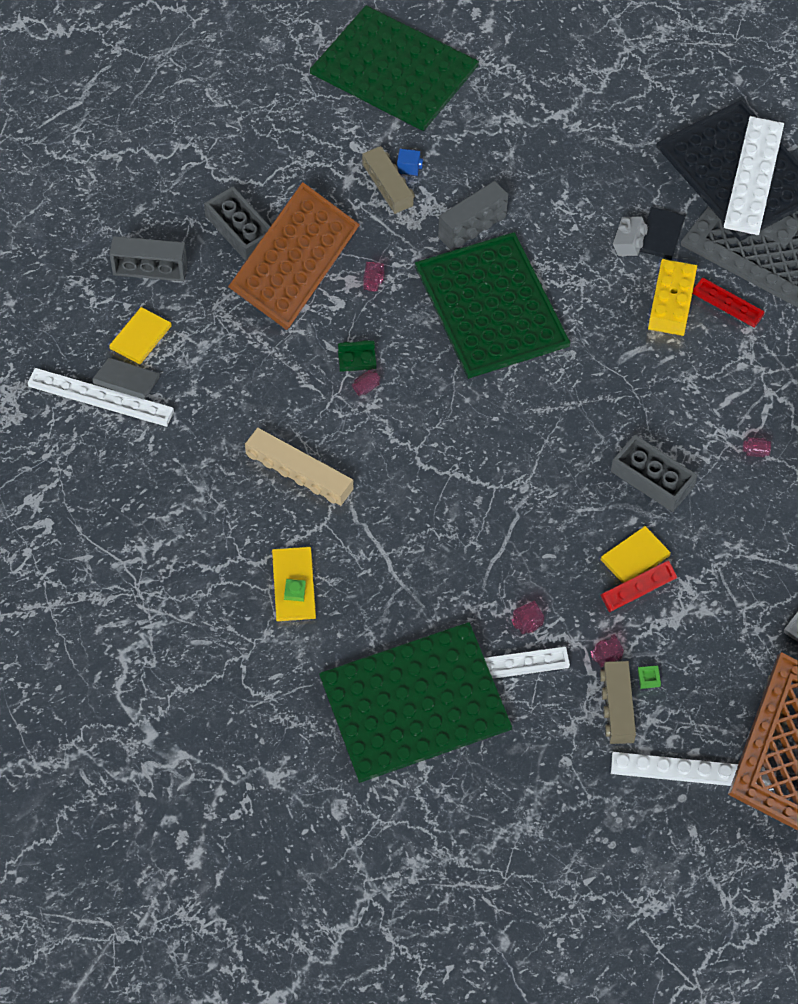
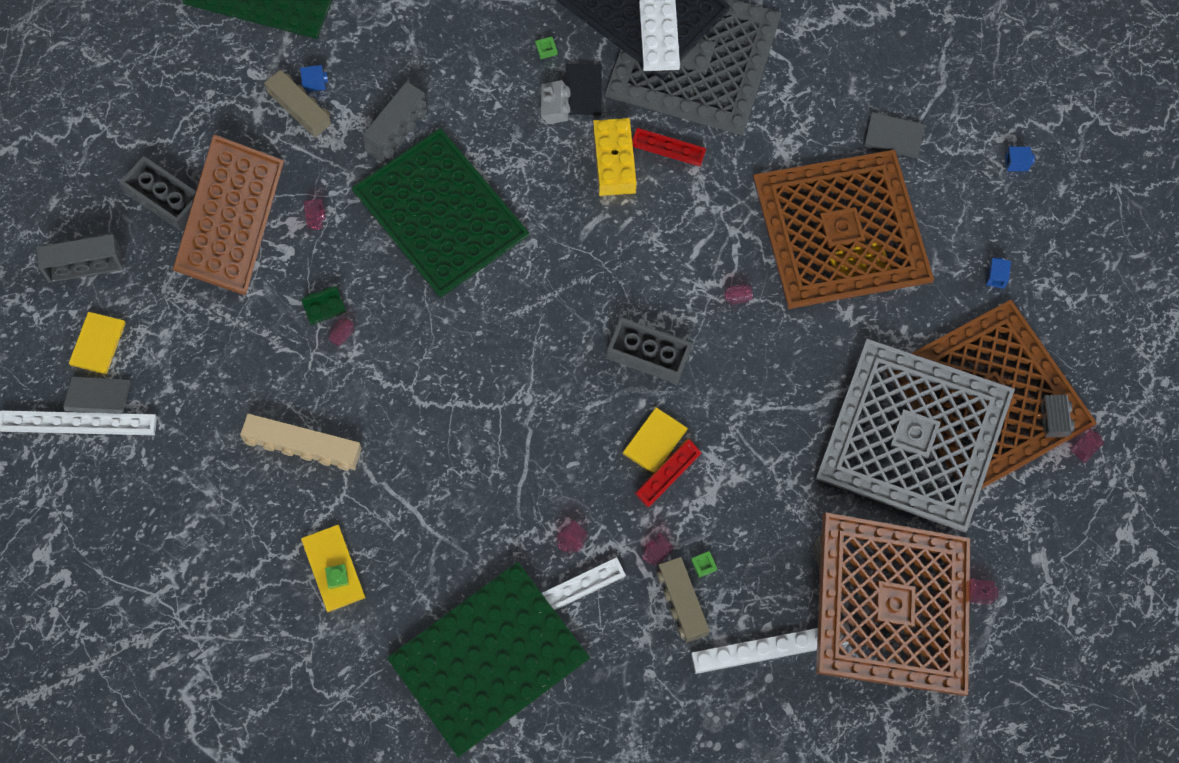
camera: 20 degrees left, 10 degrees up
(636, 188) = (546, 47): none -> bright green plate

